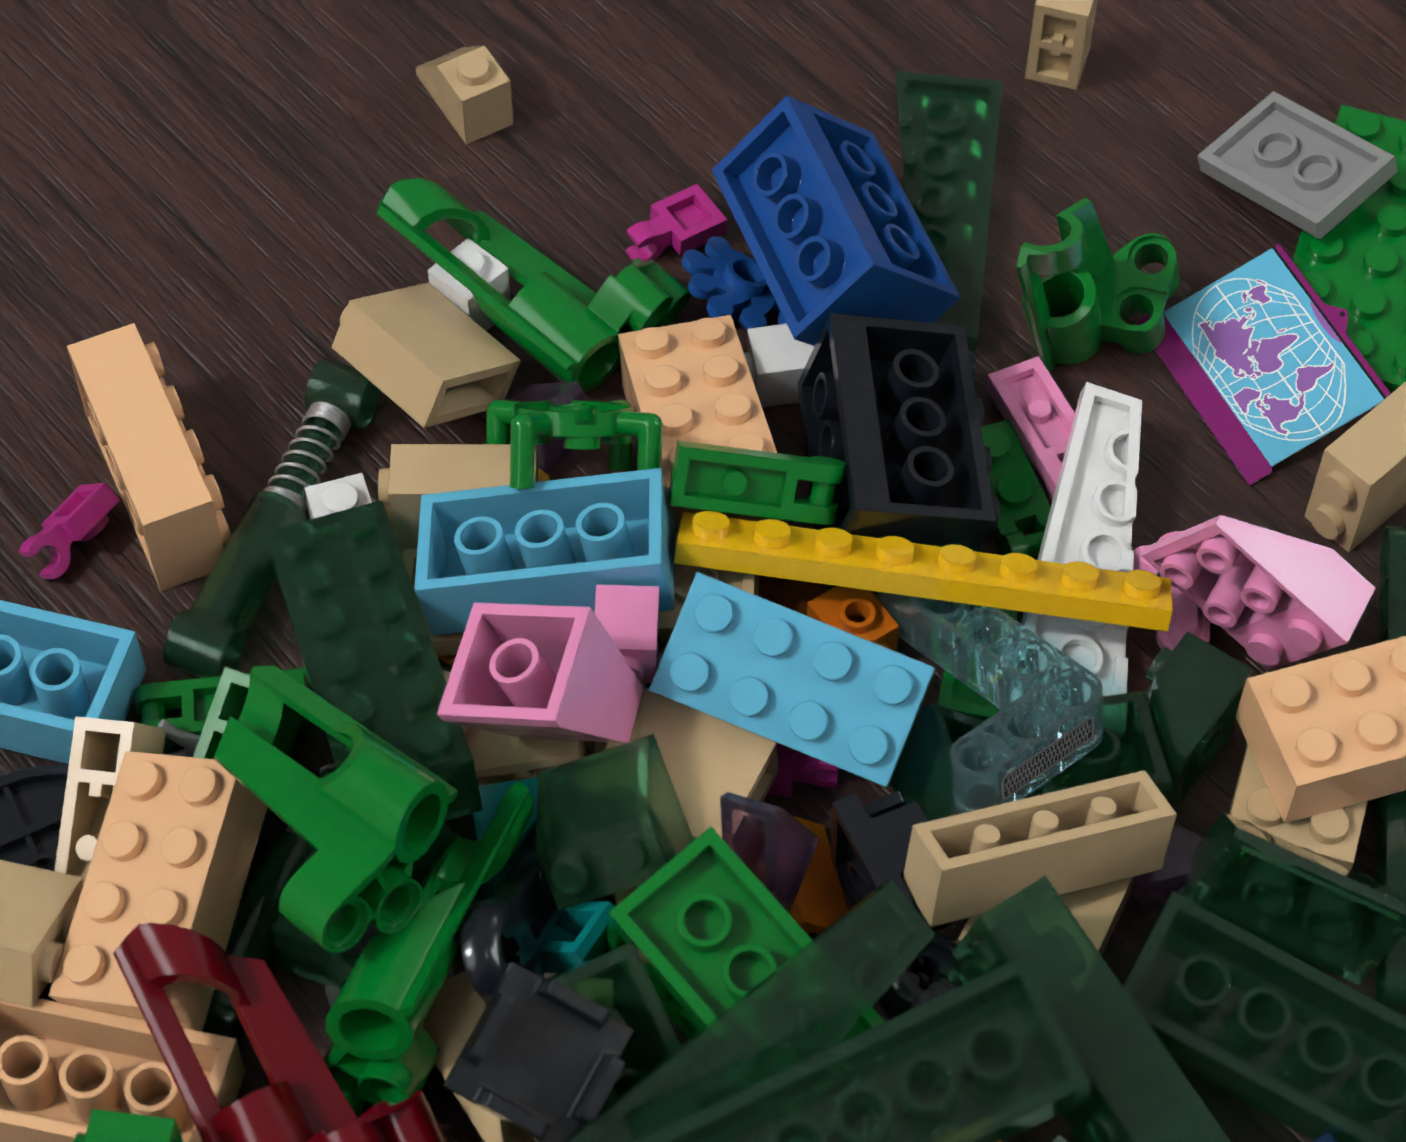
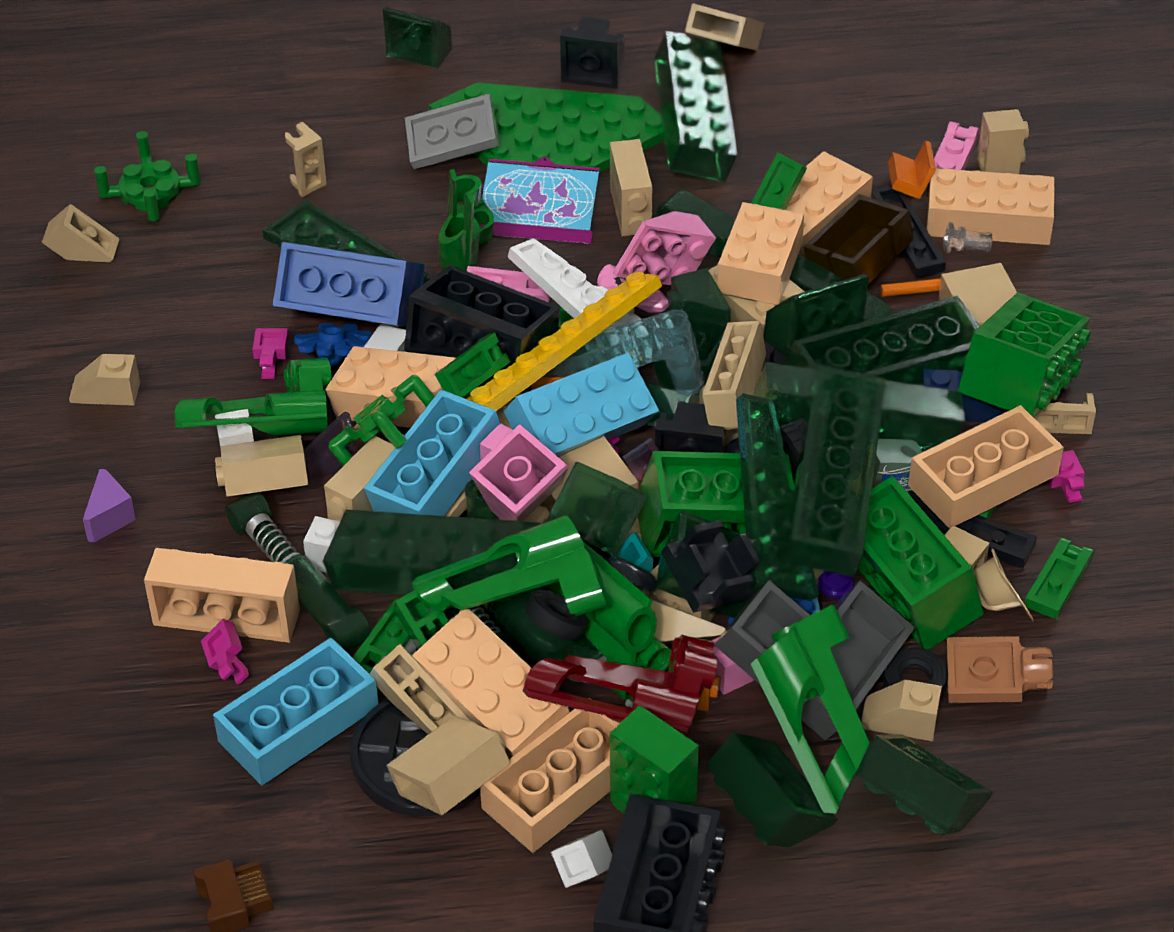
camera: 55 degrees left, 10 degrees down
(237, 229) = (107, 508): none -> medium lavender slope

